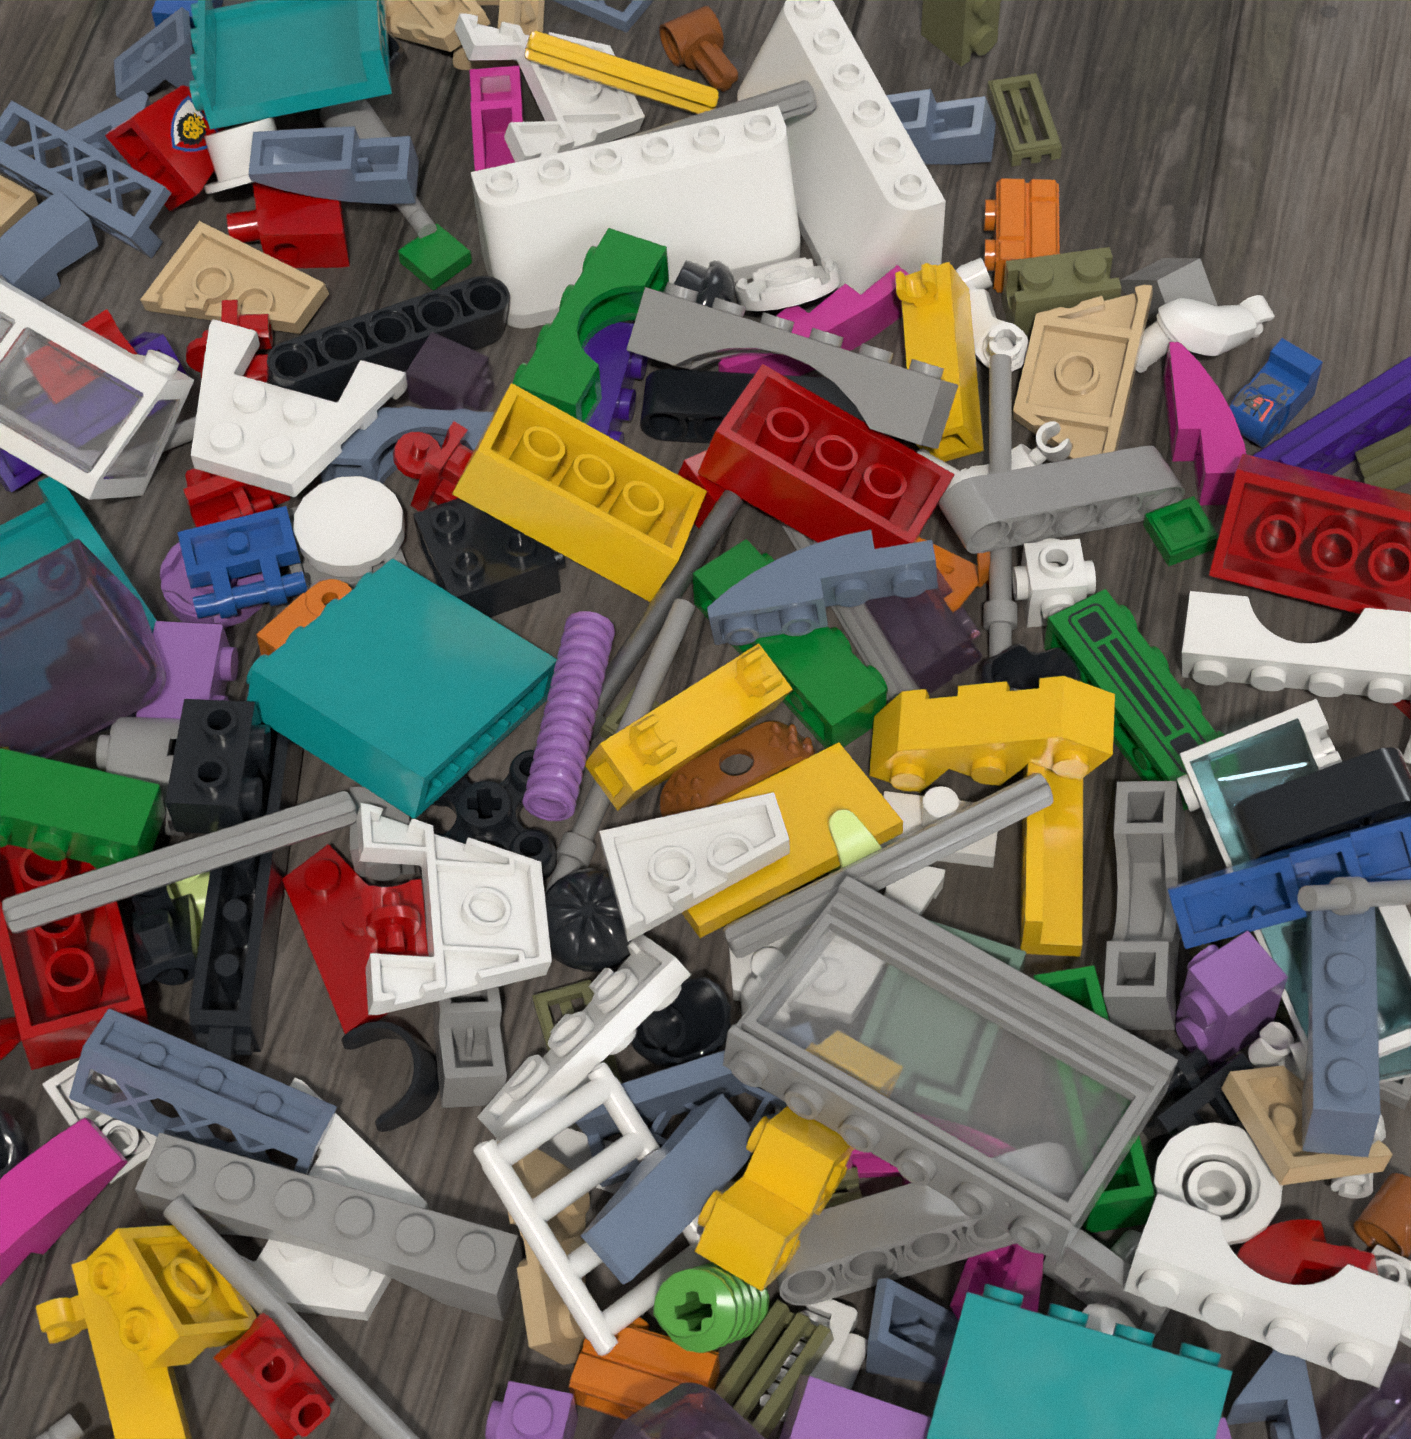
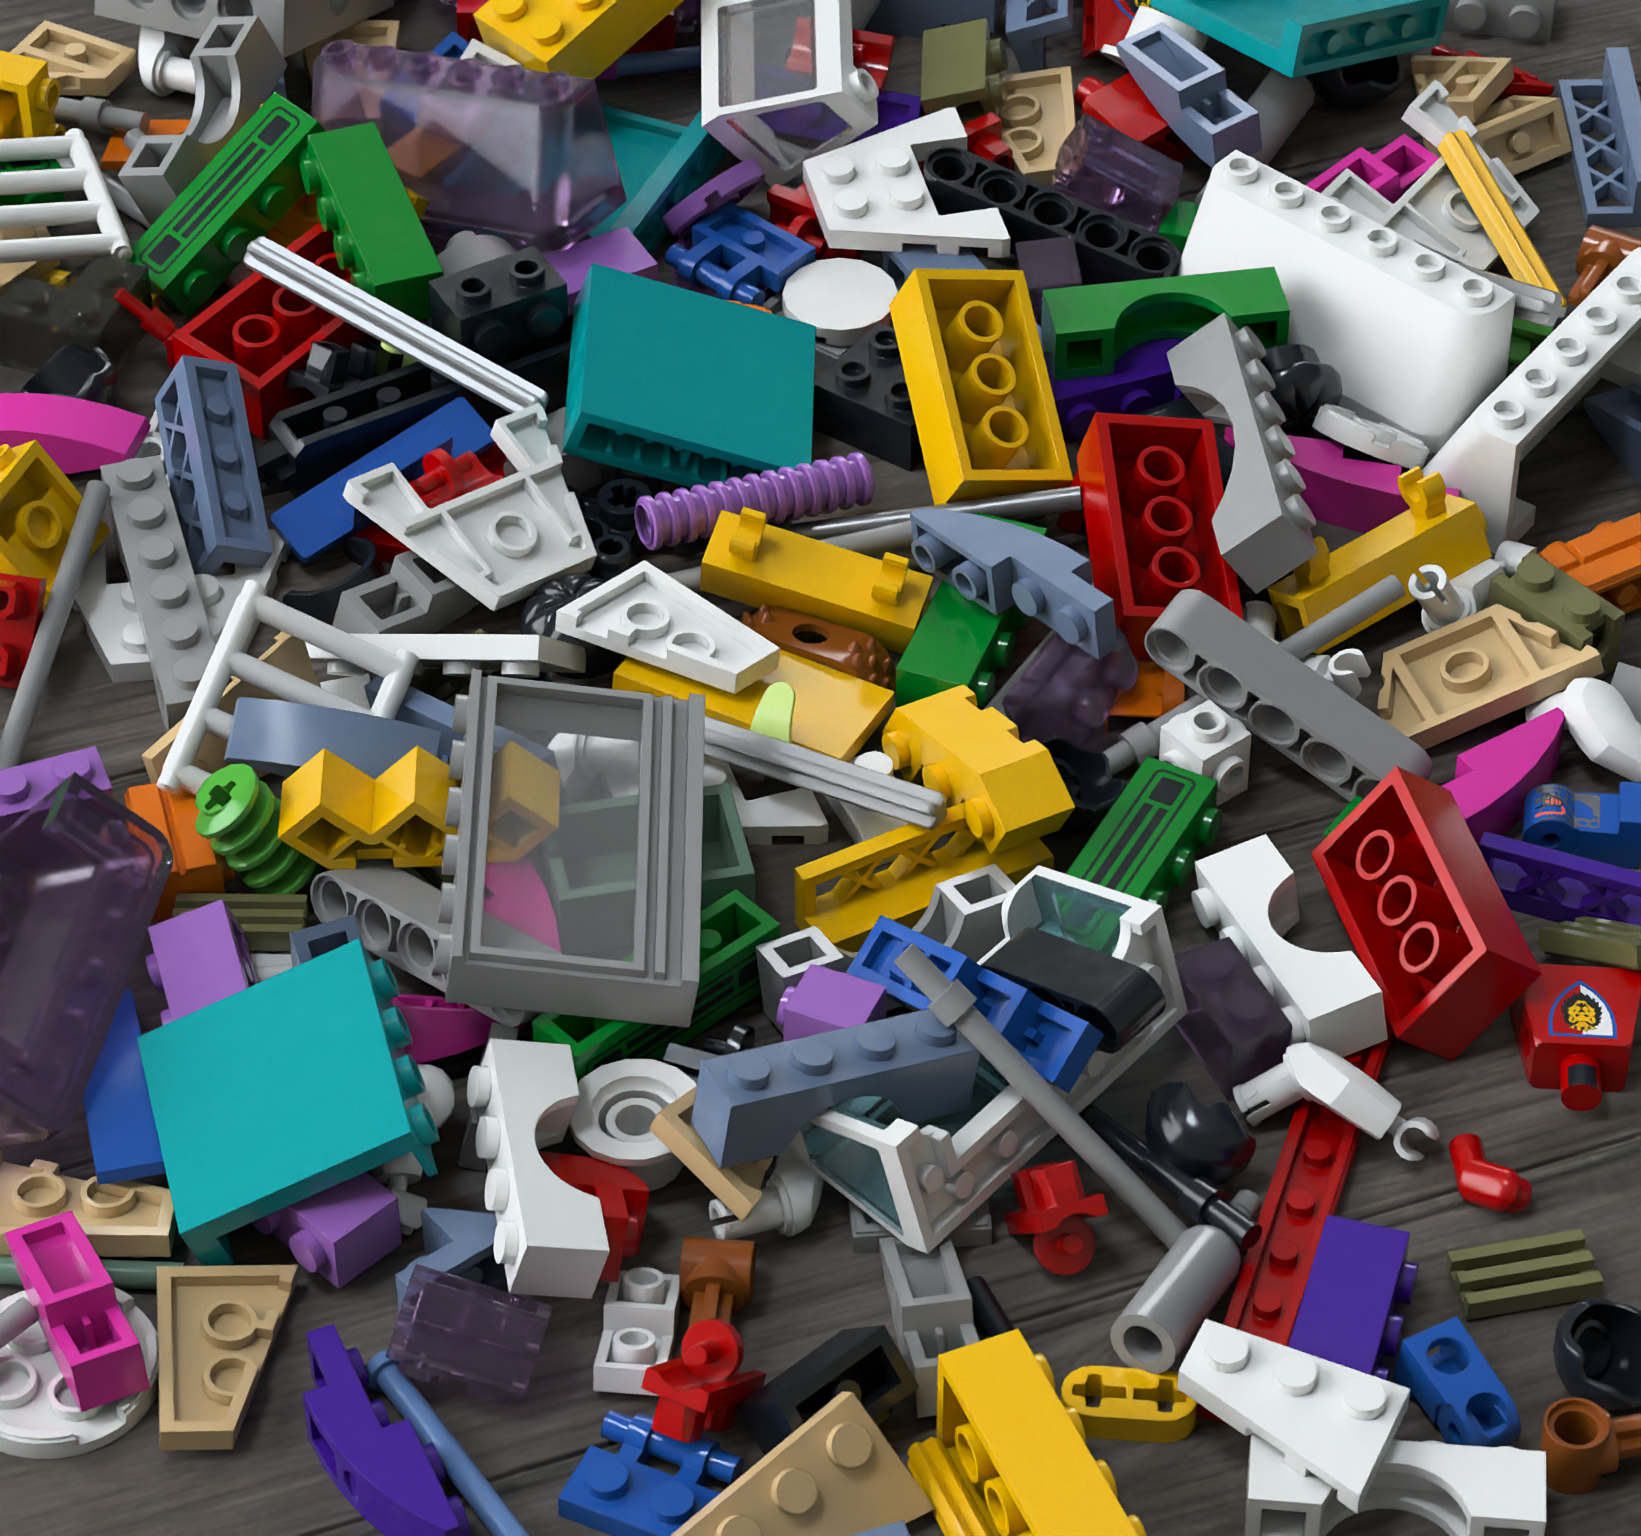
camera: 55 degrees right, 15 degrees down
(155, 539) = (728, 186): none -> medium lavender tile
(158, 295) = (963, 70): none -> olive brick
(317, 970) = (324, 516): none -> blue bracket
(365, 265) = (1117, 174): none -> clear purple brick
(1357, 713) = (1230, 1015): none -> clear purple brick

